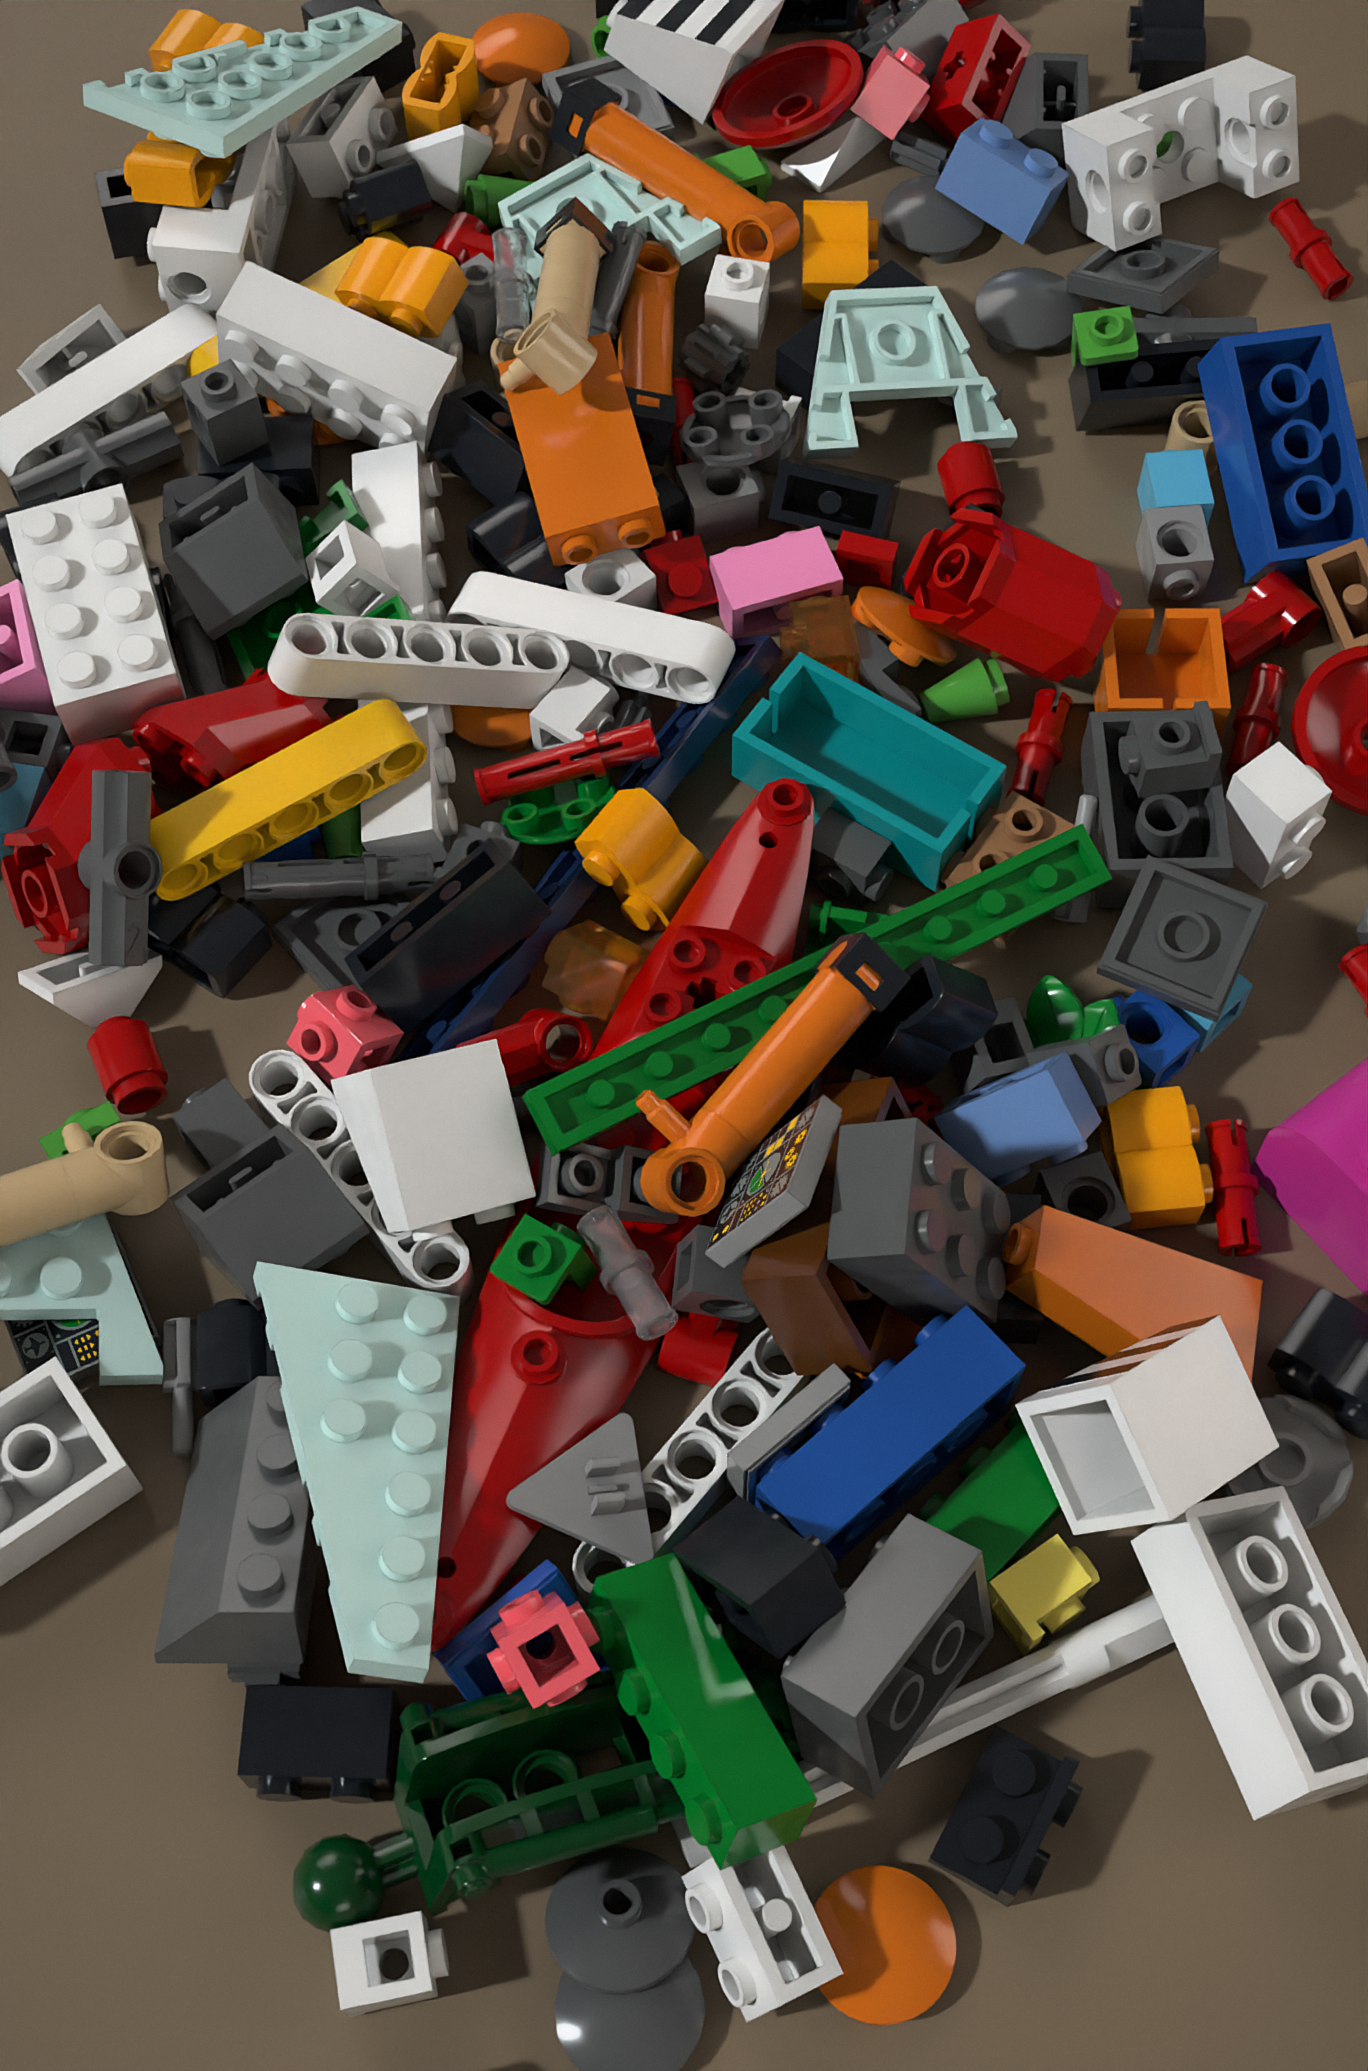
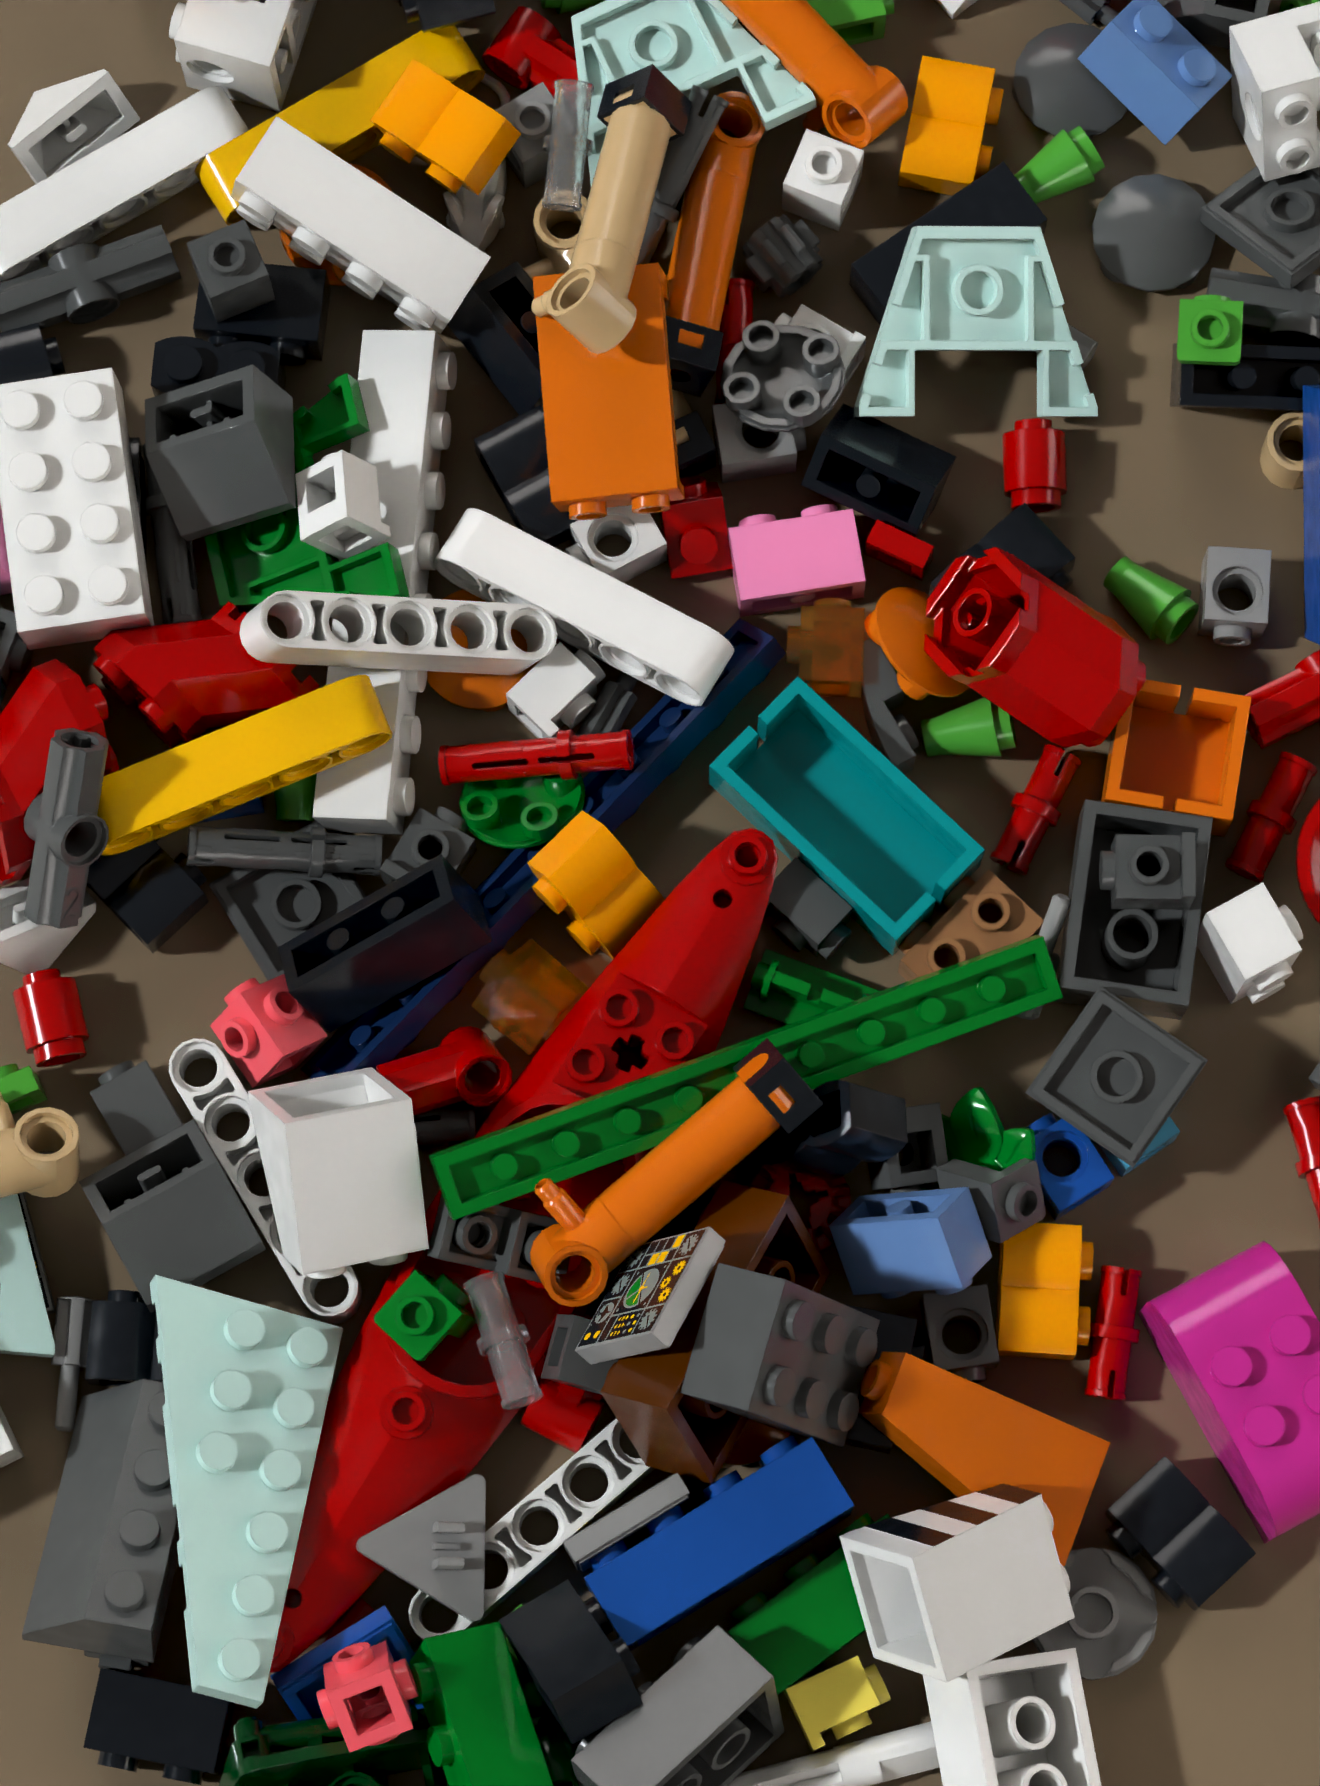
camera: 10 degrees right, 15 degrees up
(945, 263) = (1061, 166): none -> bright green cone
(1123, 567) = (1153, 601): none -> bright green cone
(1175, 480) = (1255, 512): medium azure brick -> none

